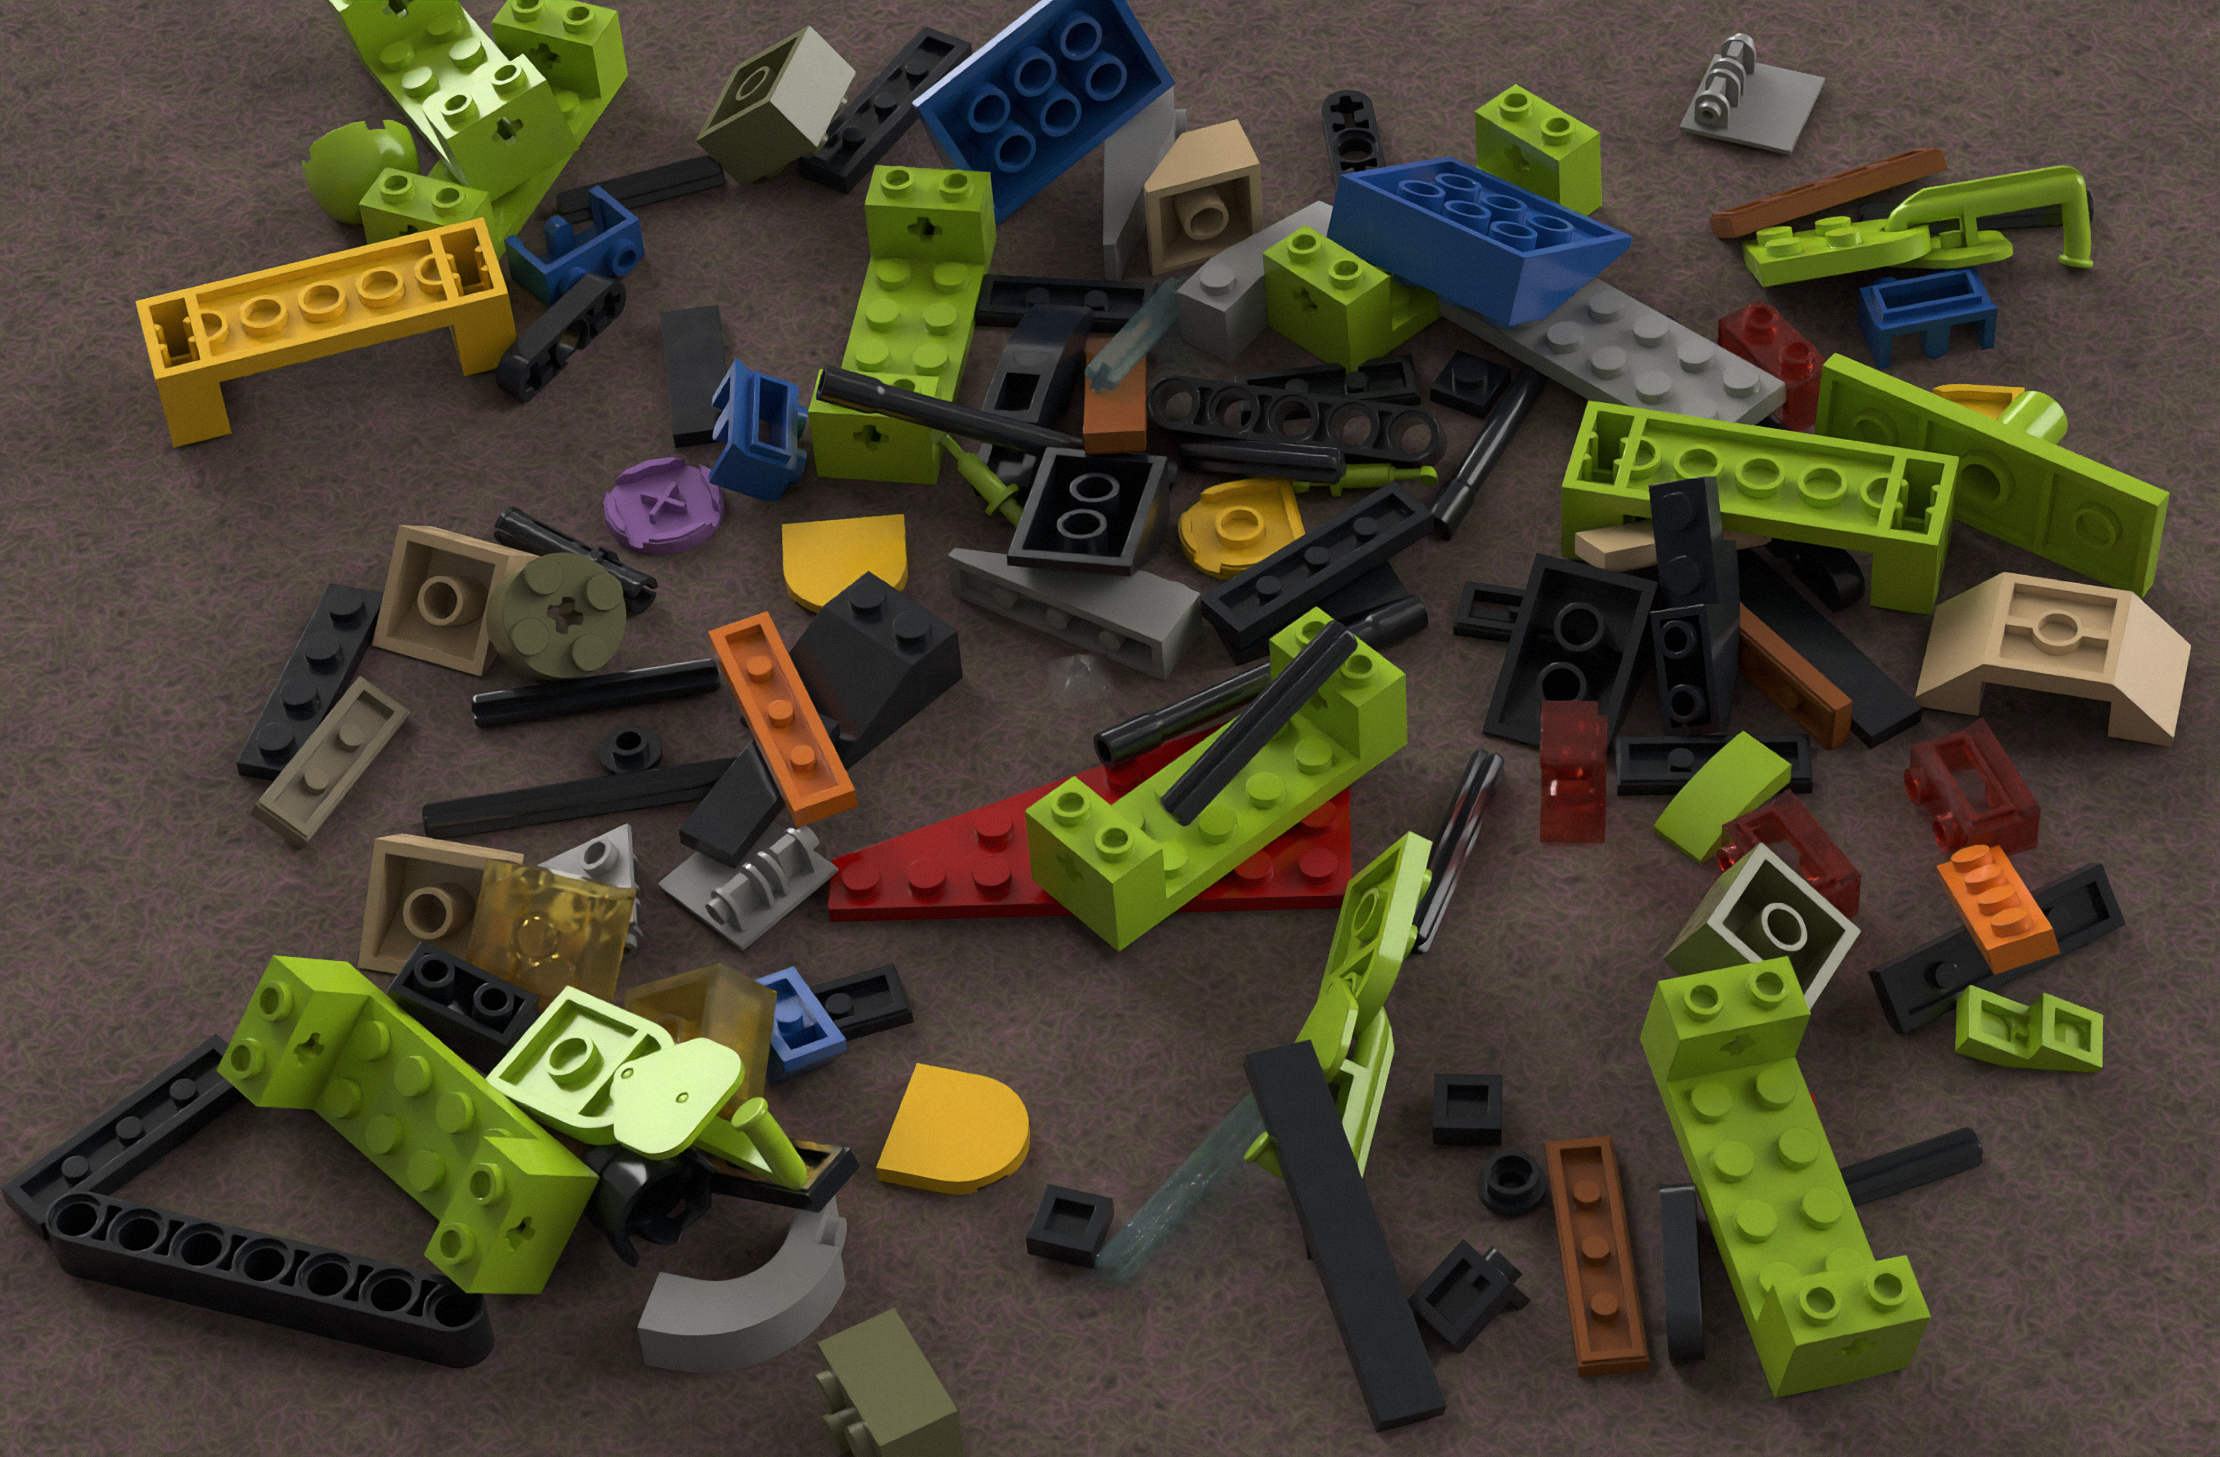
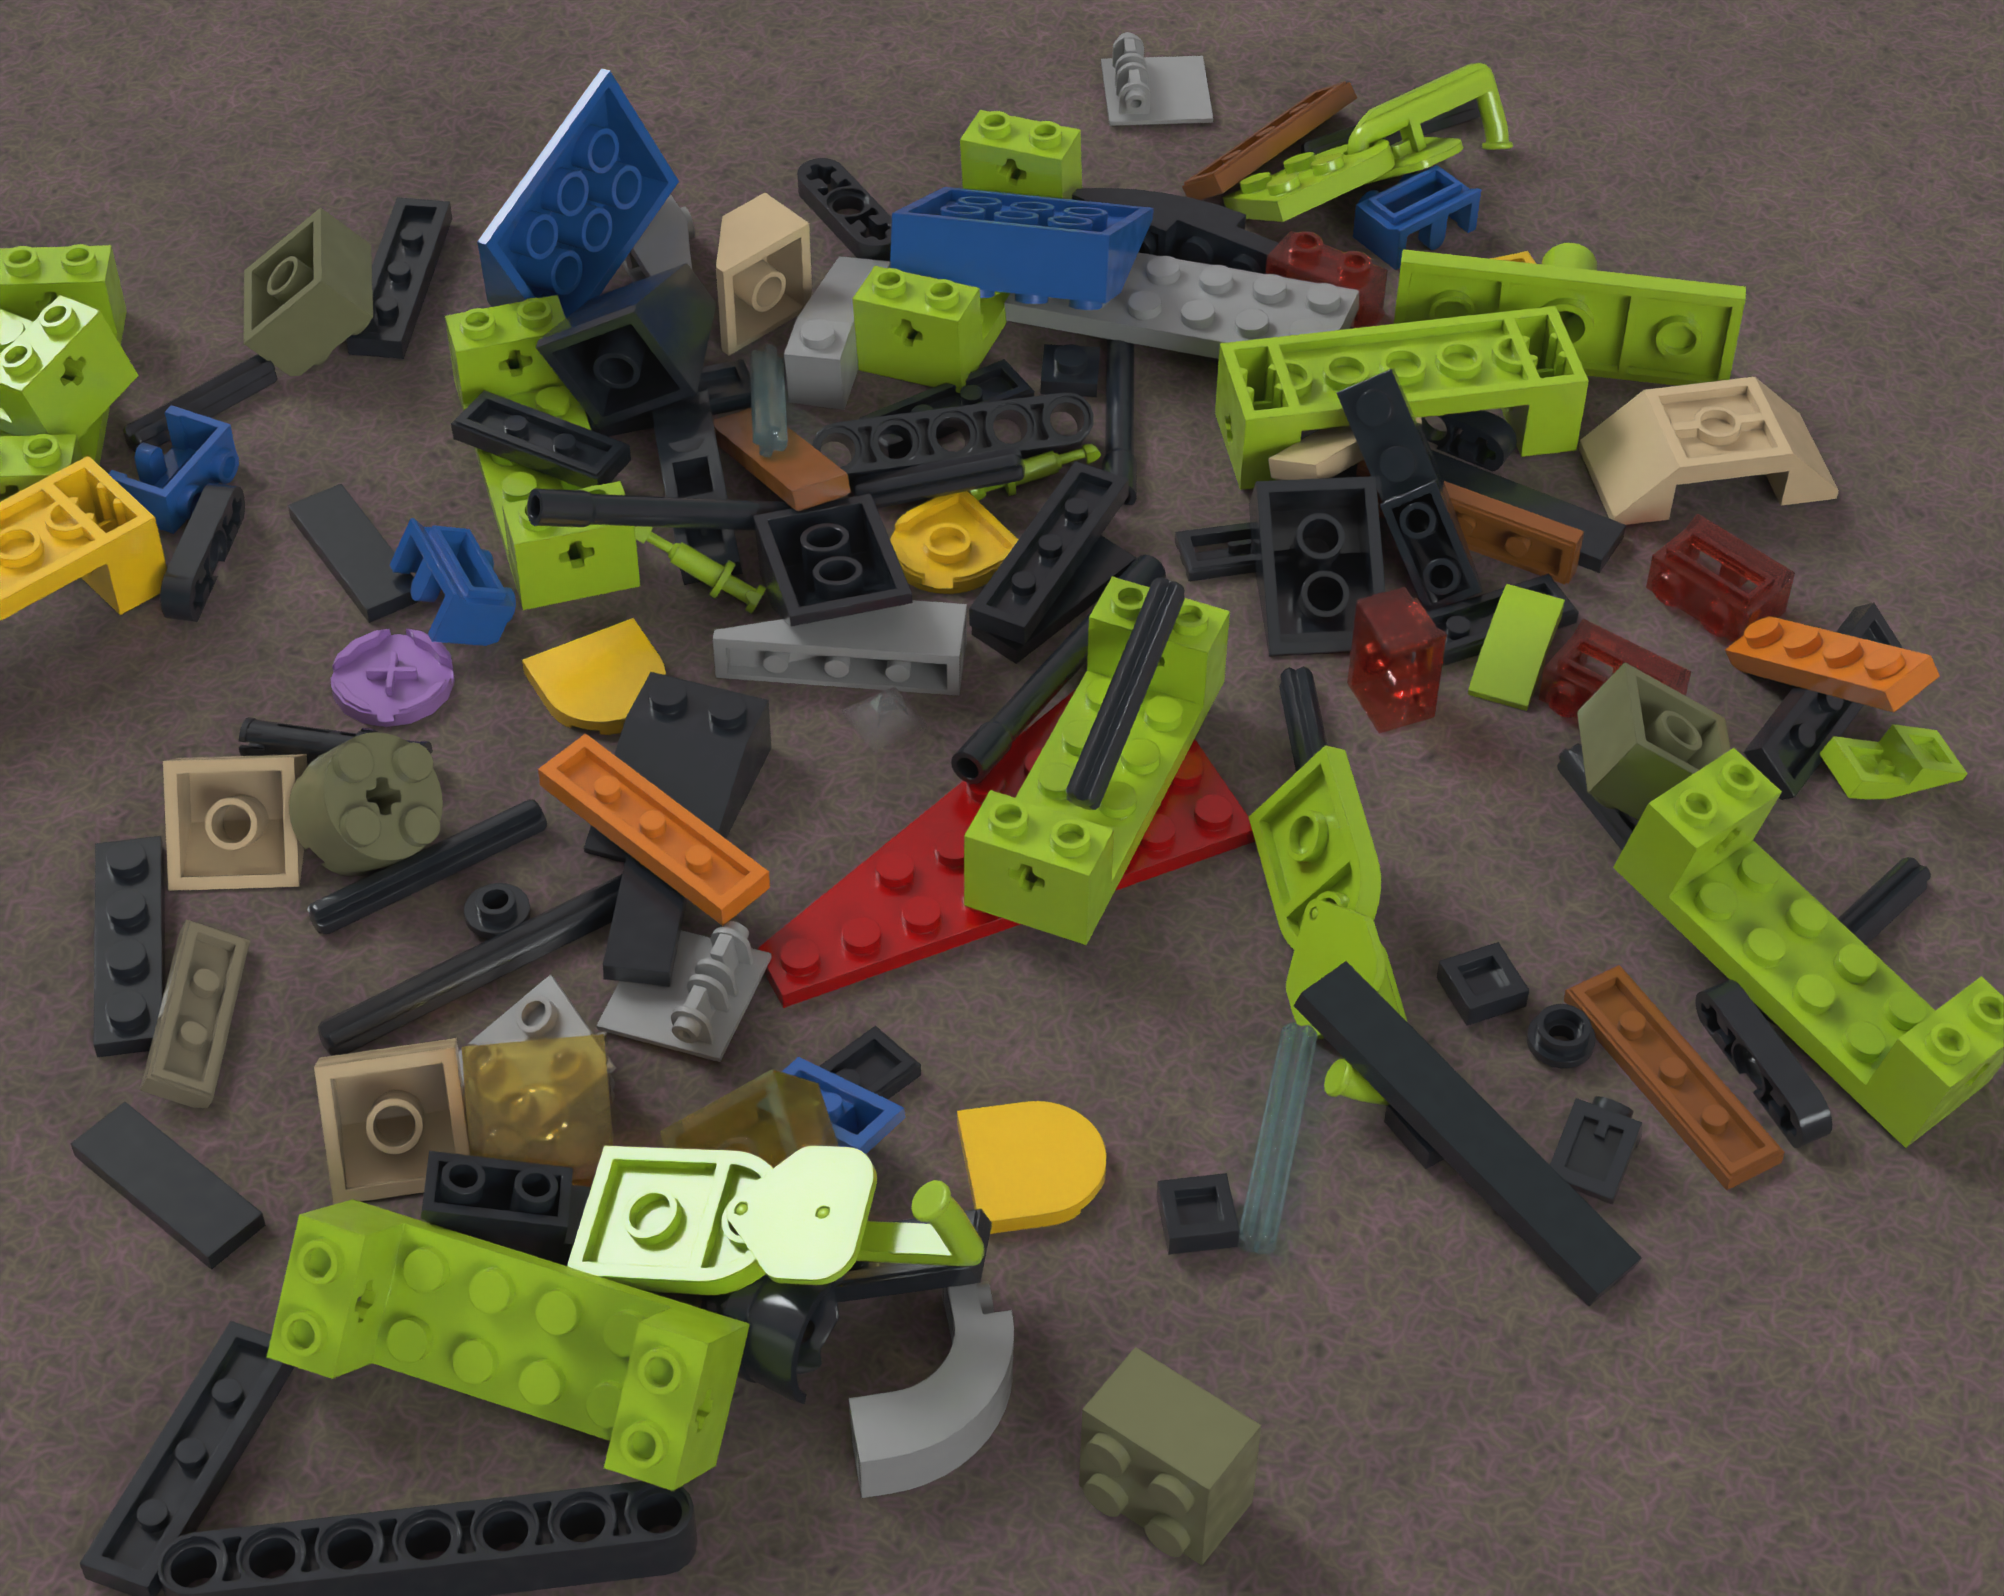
camera: 30 degrees left, 0 degrees up
(233, 901) = (168, 1185): none -> black tile
(910, 316) = (540, 441): none -> black tile
(1033, 242) = (634, 346): none -> black slope
(1665, 264) = (1191, 229): none -> black slope

